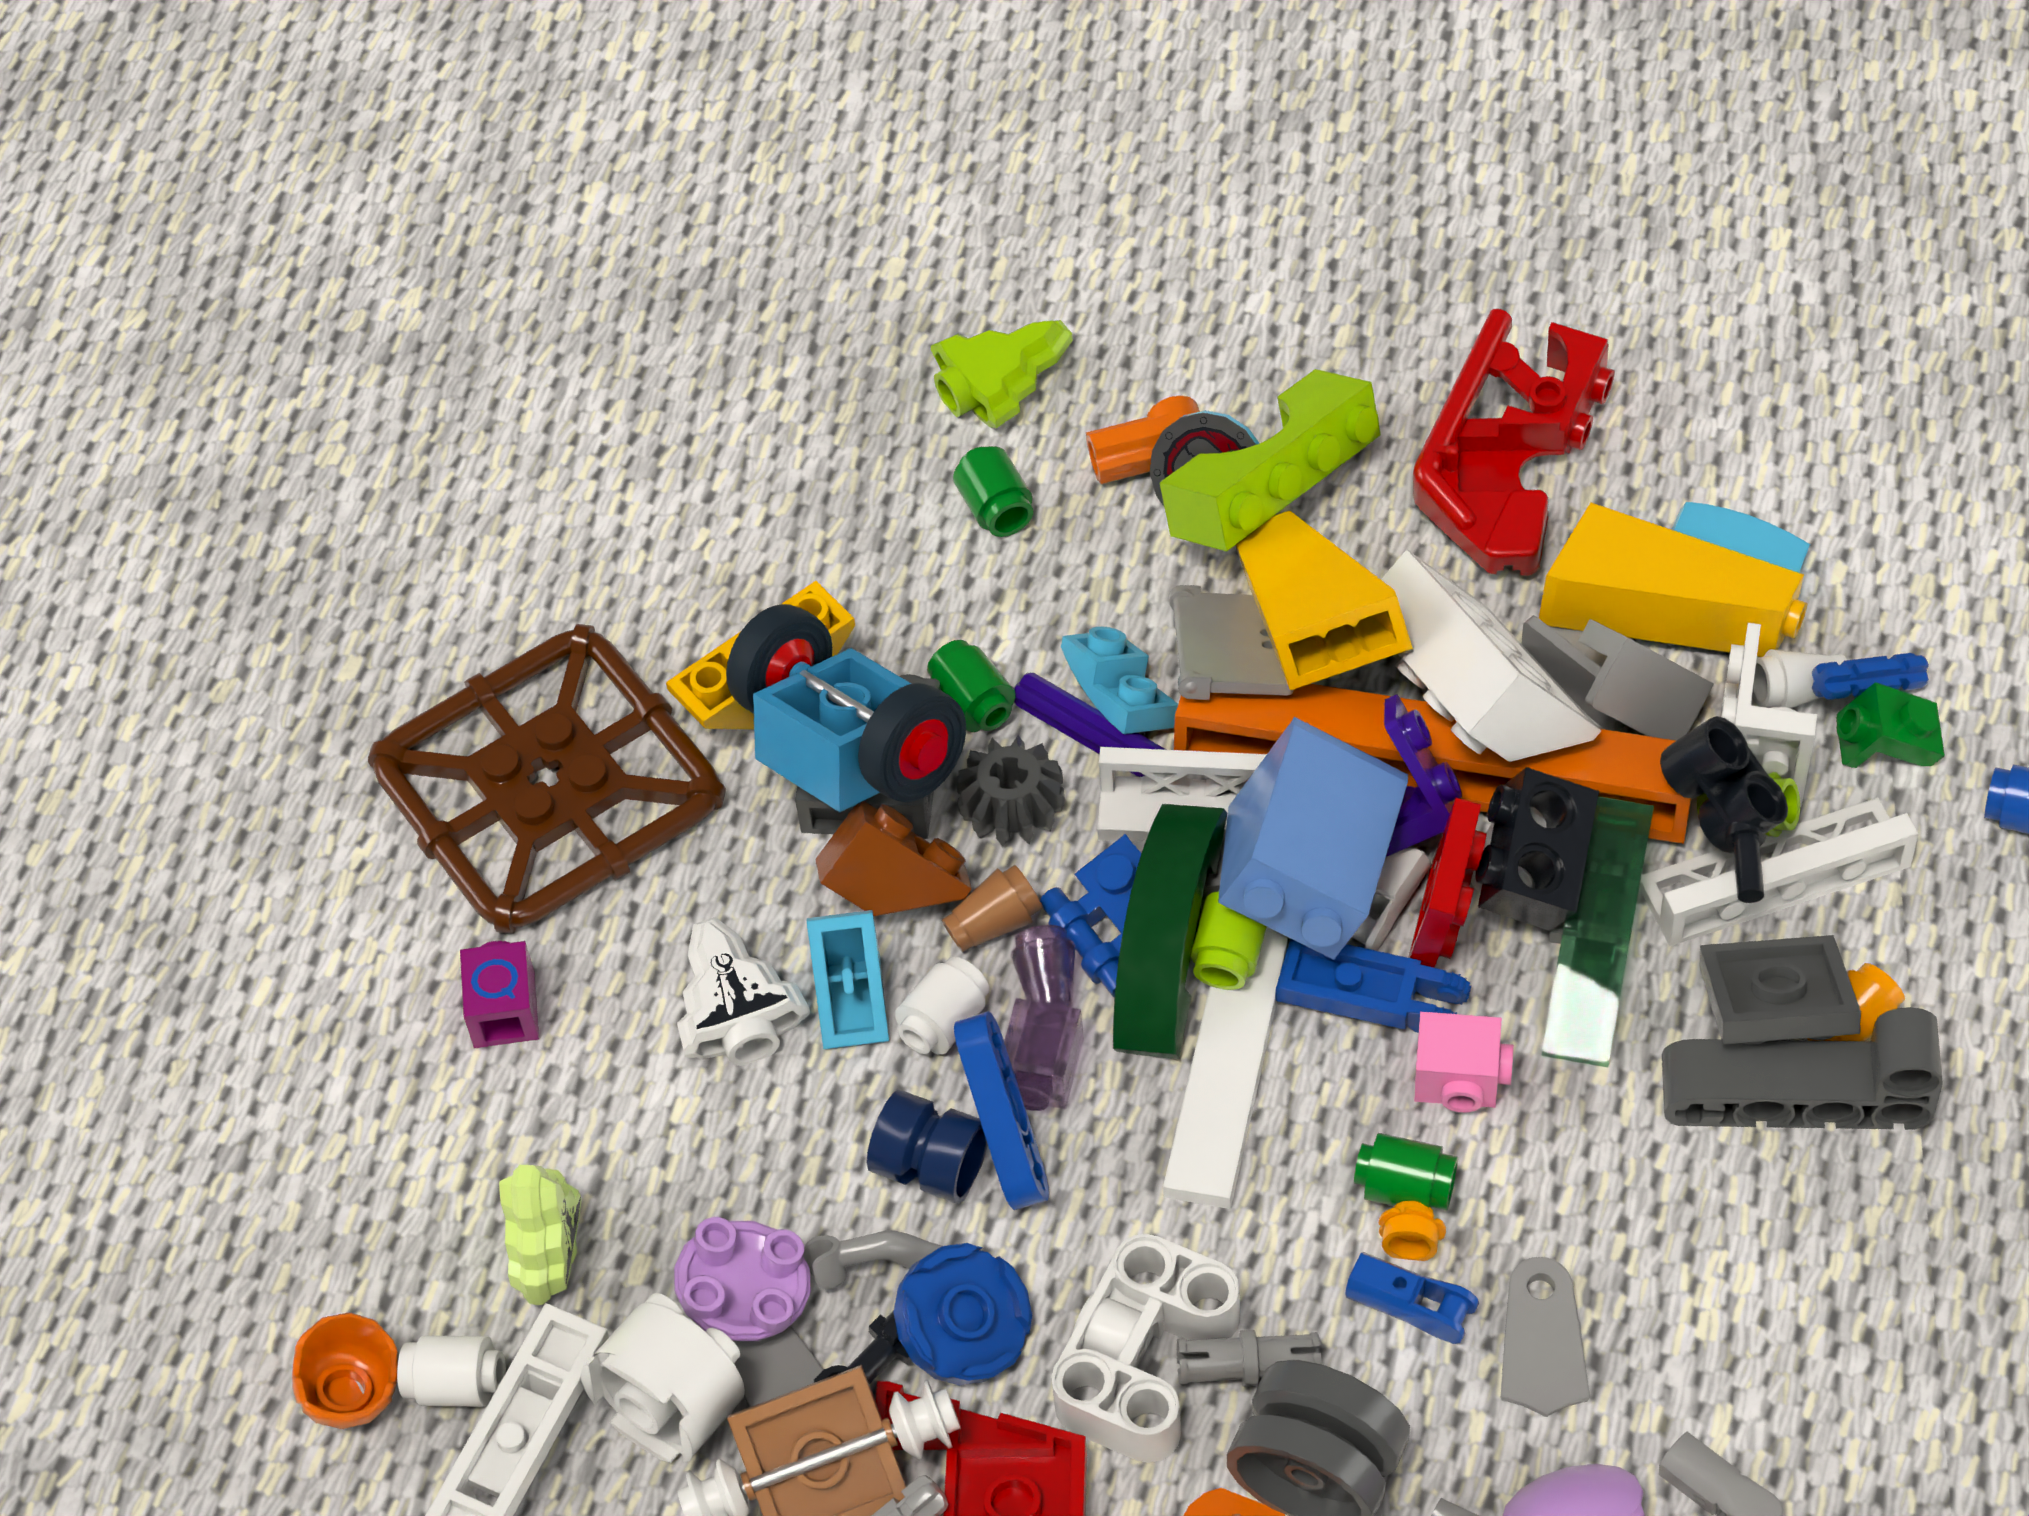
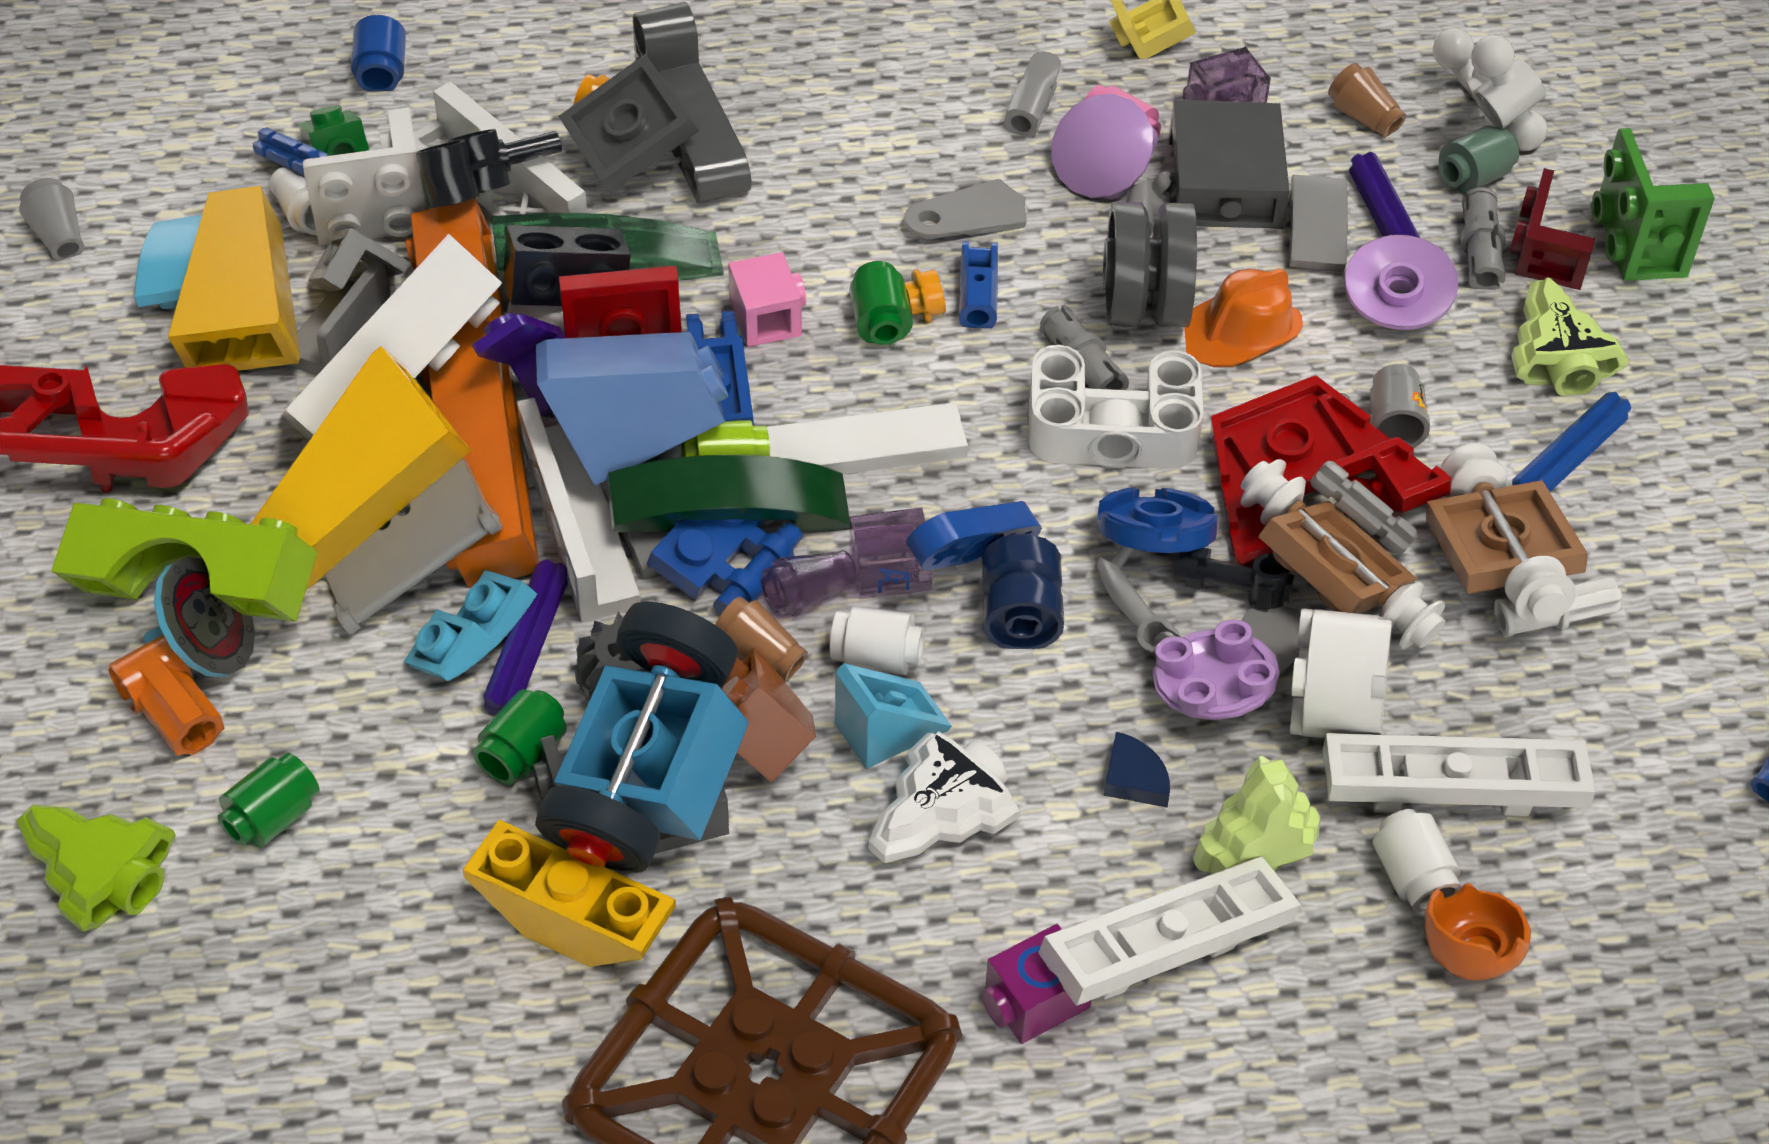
camera: 120 degrees left, 5 degrees down
(472, 1093) = (1168, 930): none -> white hinge
(685, 1180) = (1136, 773): none -> dark blue tile
(1847, 460) = (52, 216): none -> light grey cone

